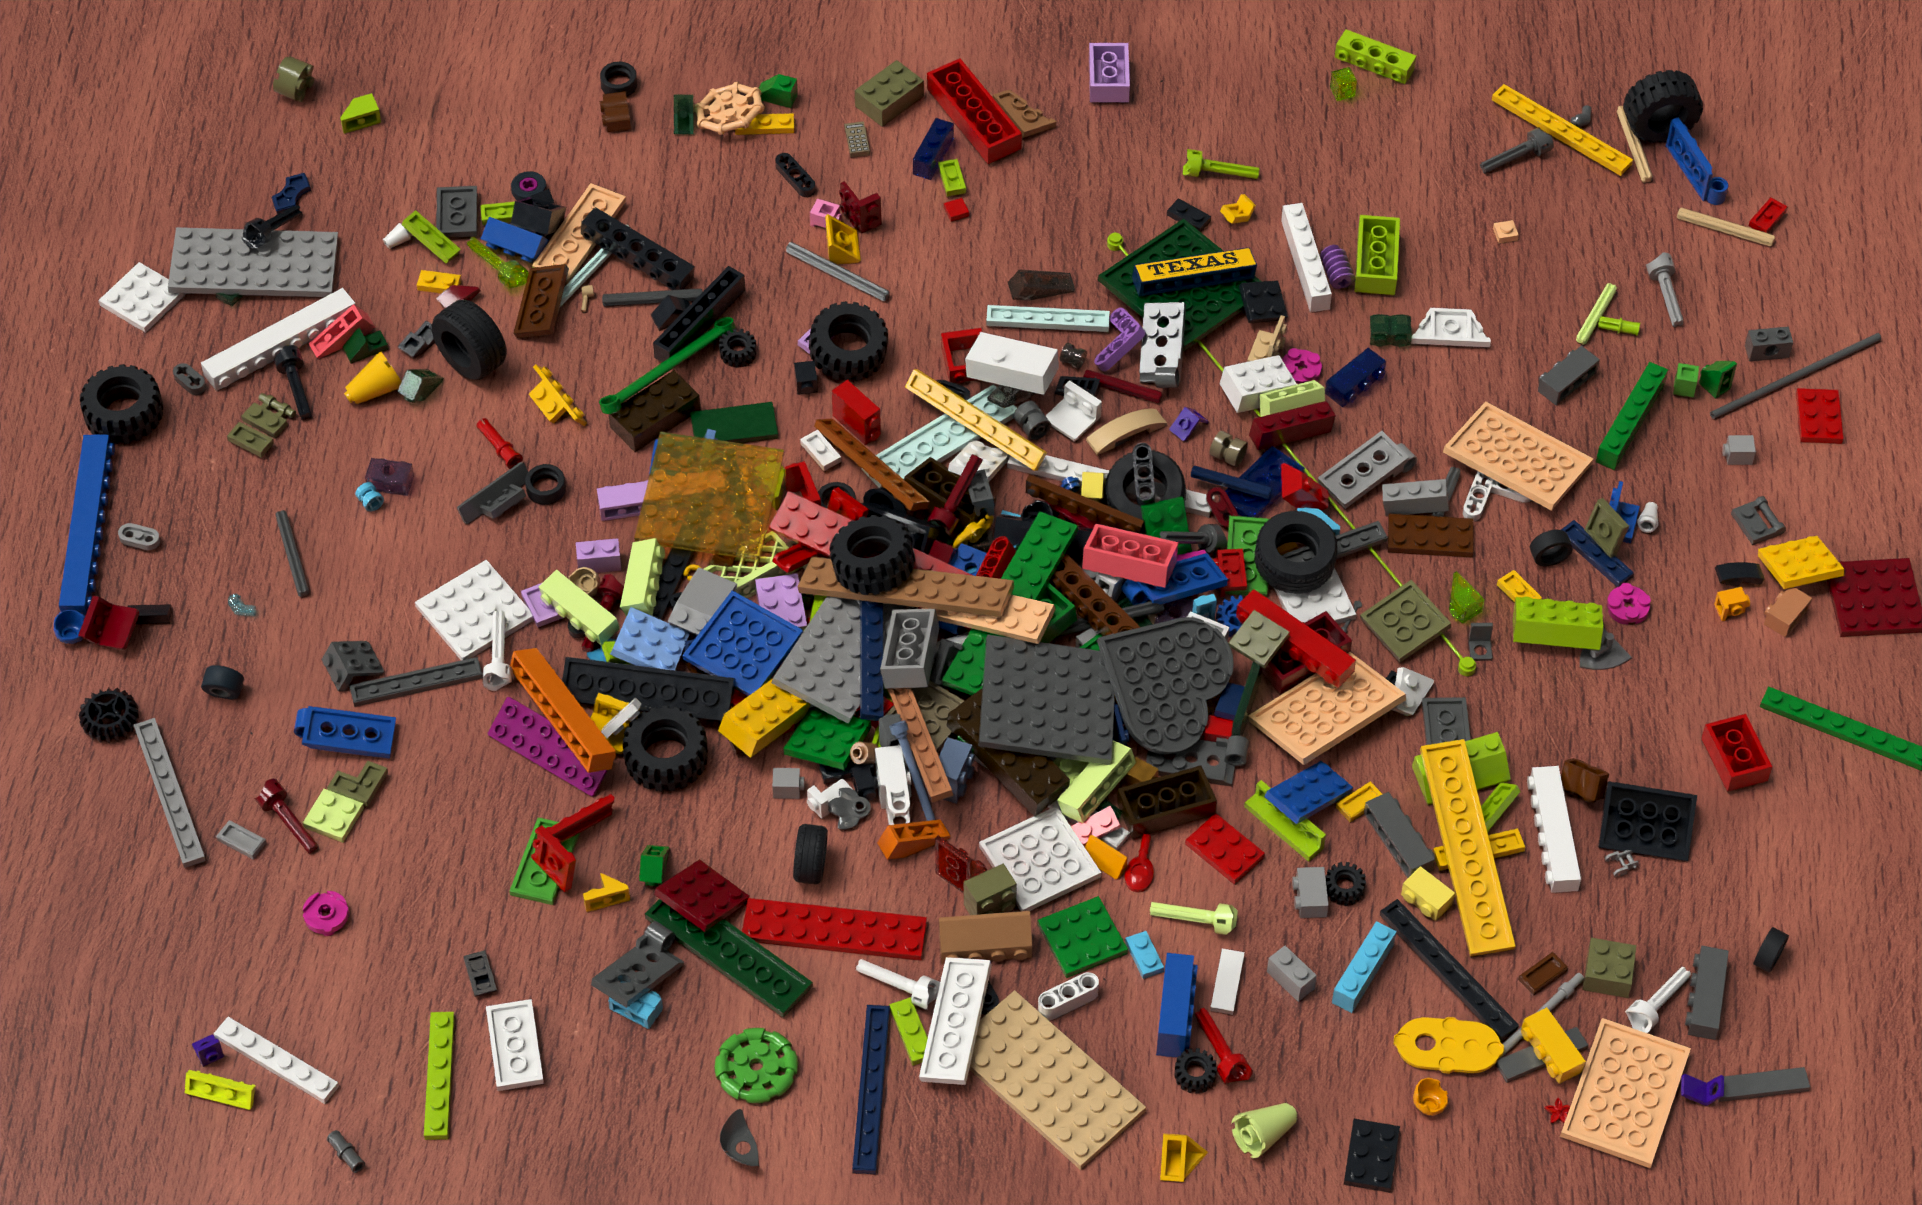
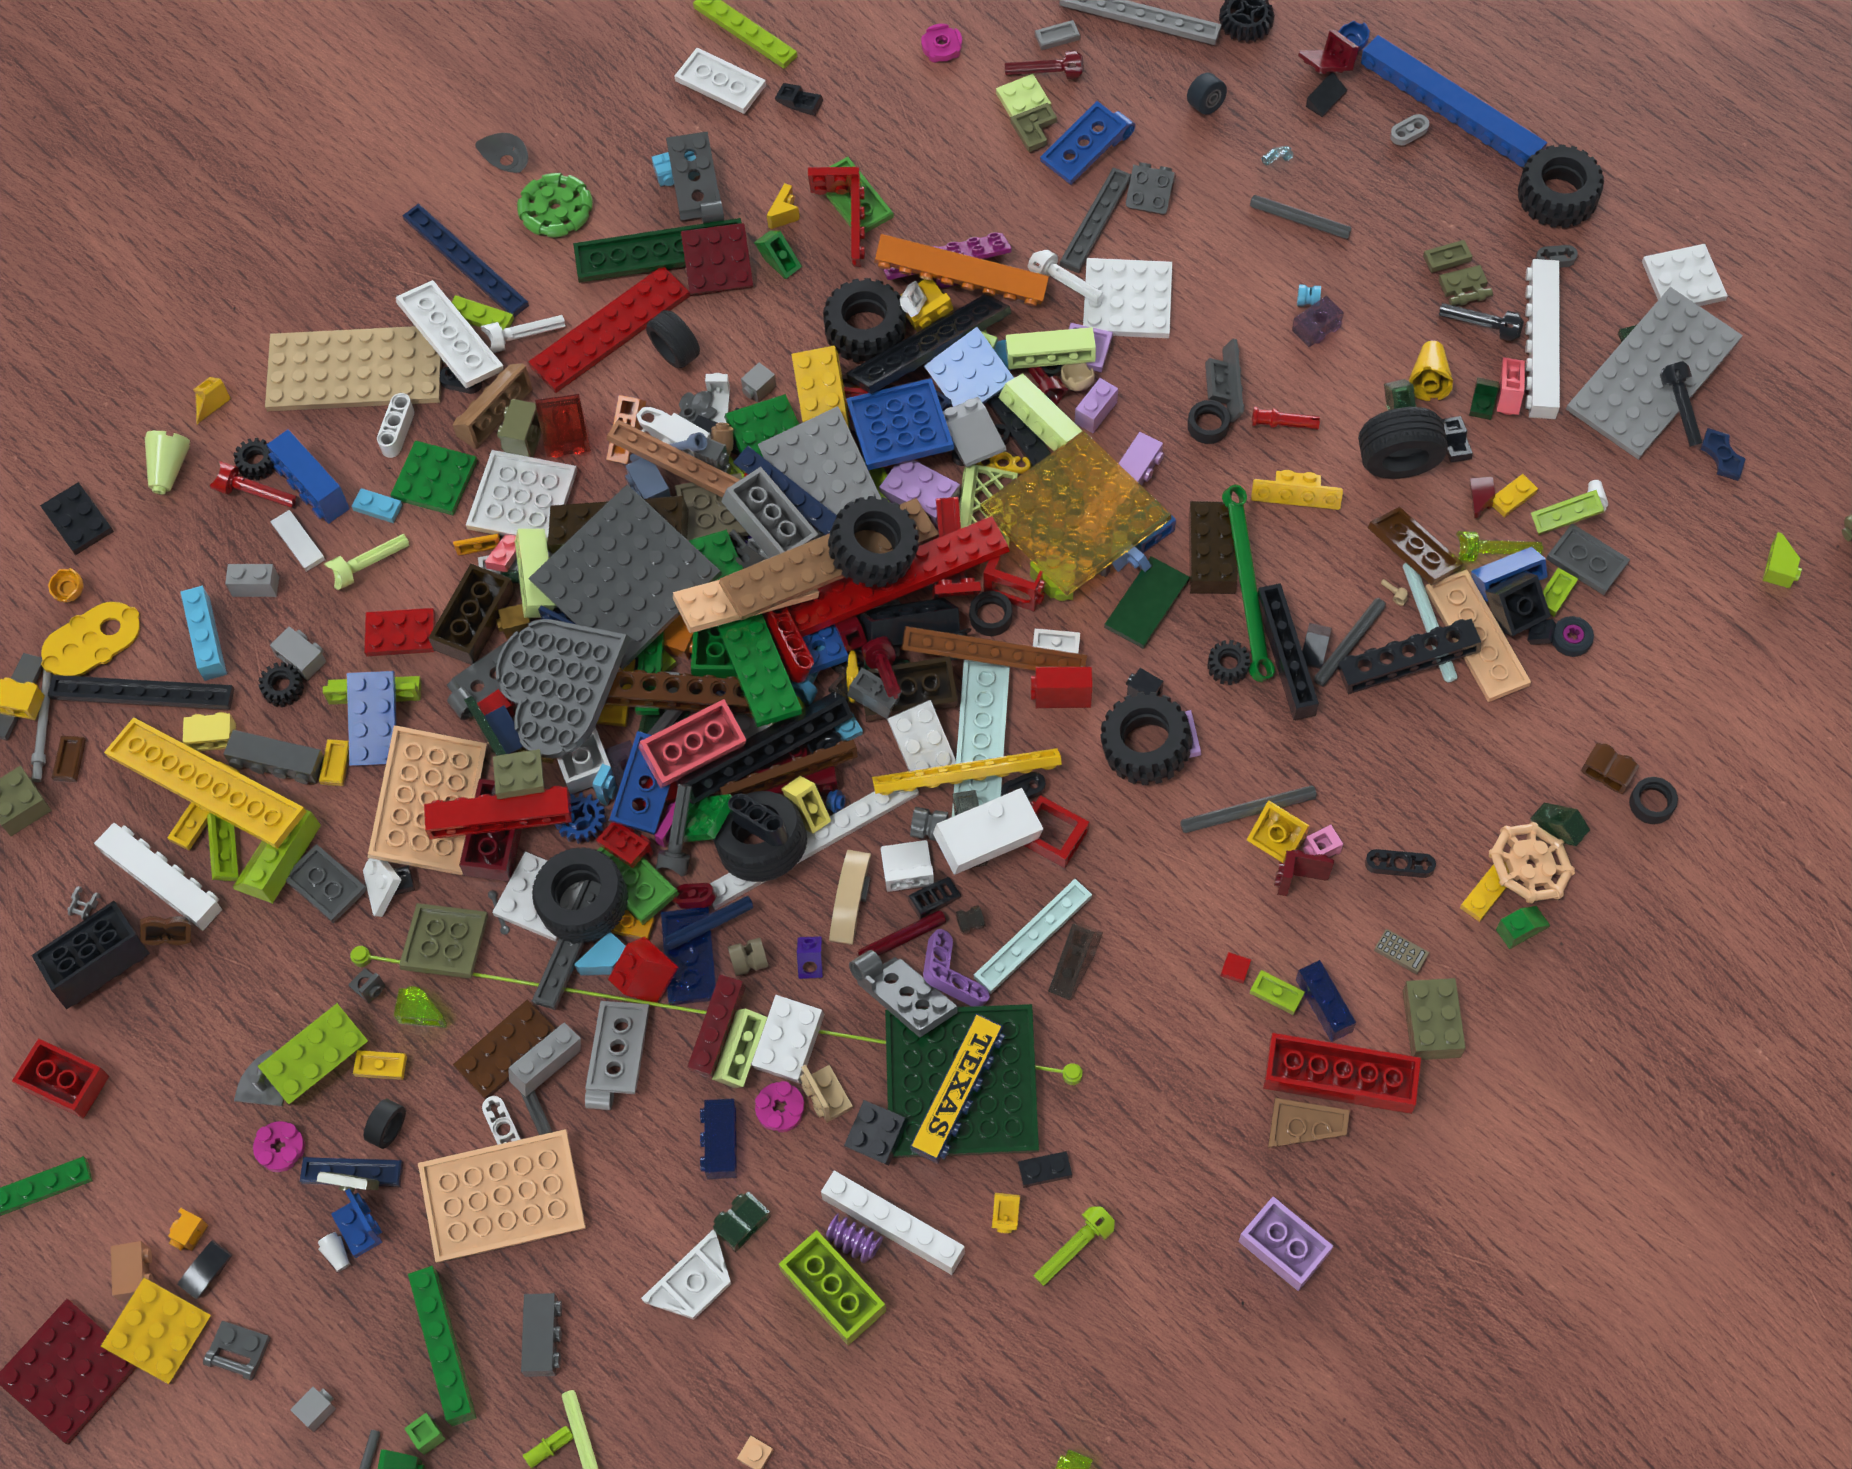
camera: 135 degrees right, 10 degrees up
(1140, 869) = (444, 559): red piece -> none

